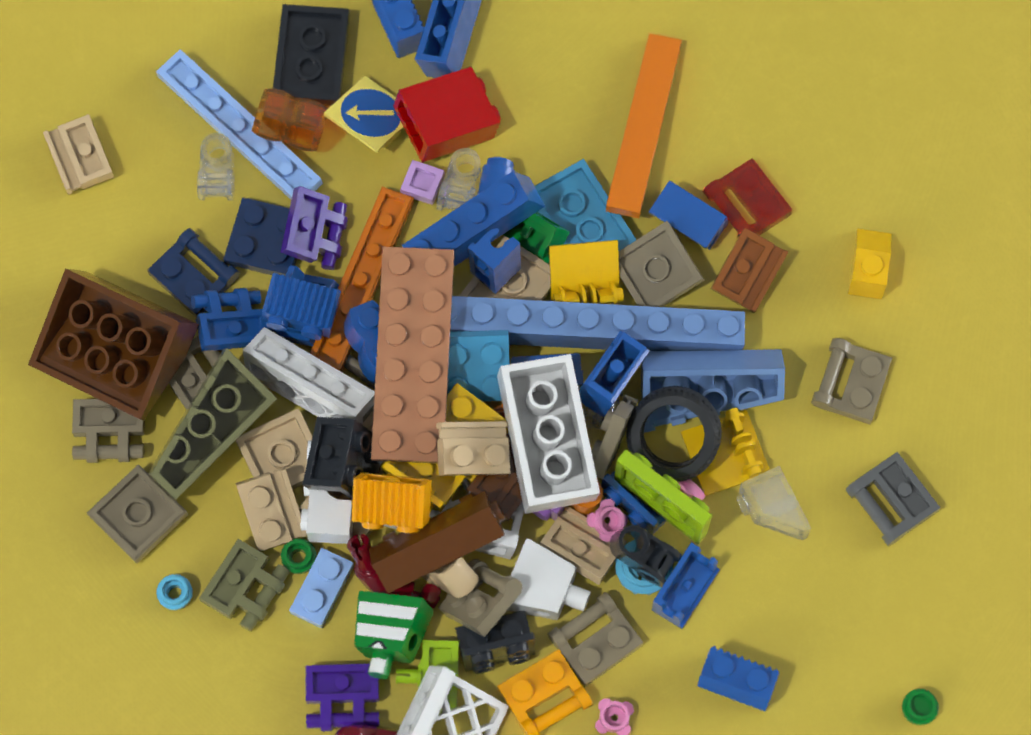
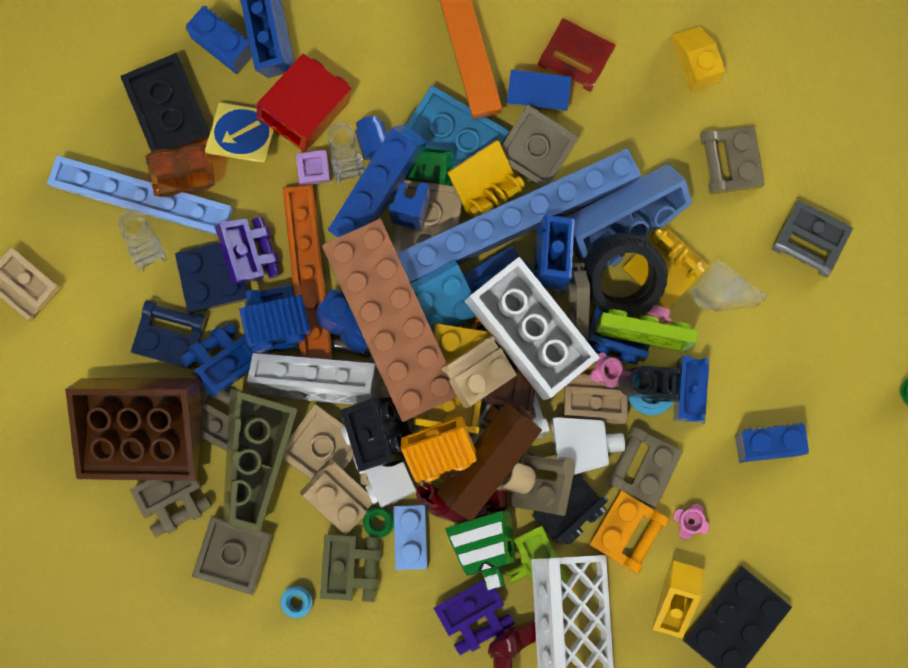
camera: 30 degrees left, 10 degrees up
(749, 270) = (608, 111): dark orange plate -> none

